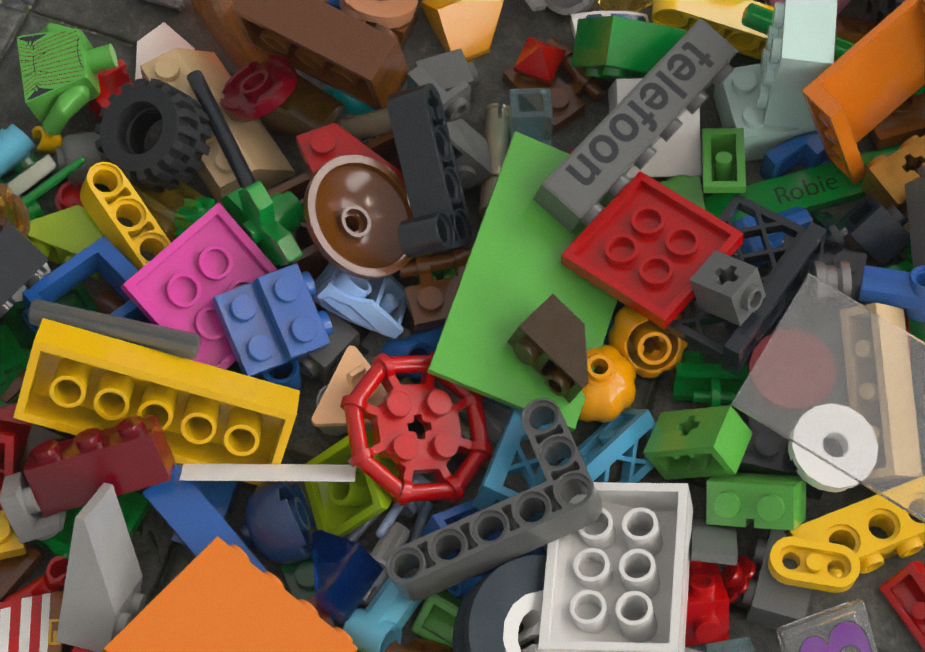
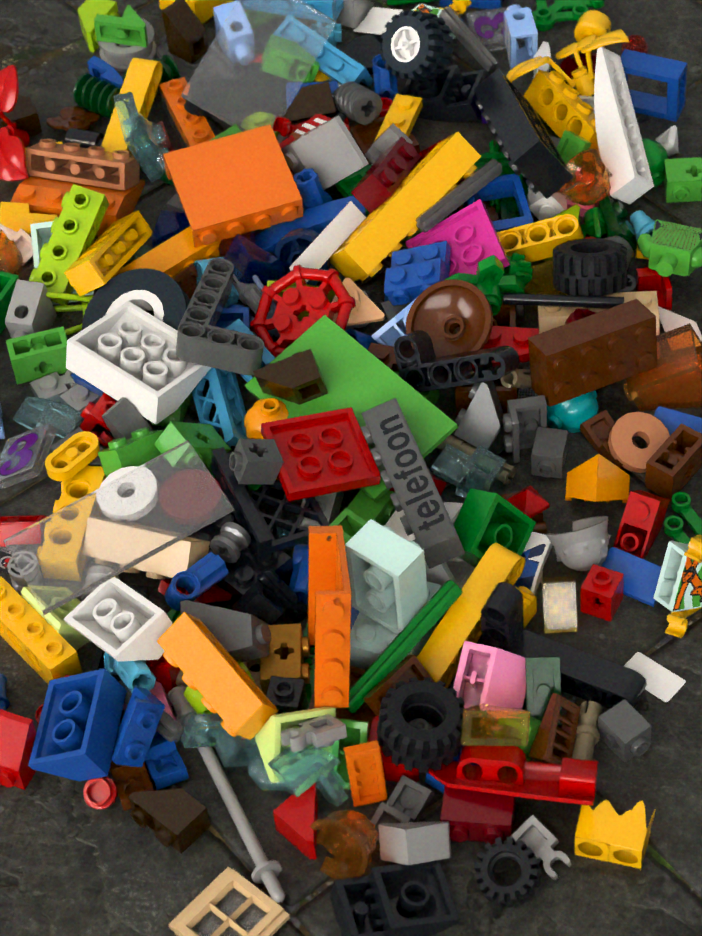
camera: 130 degrees right, 15 degrees down
(164, 566) = (311, 189): none -> blue piece

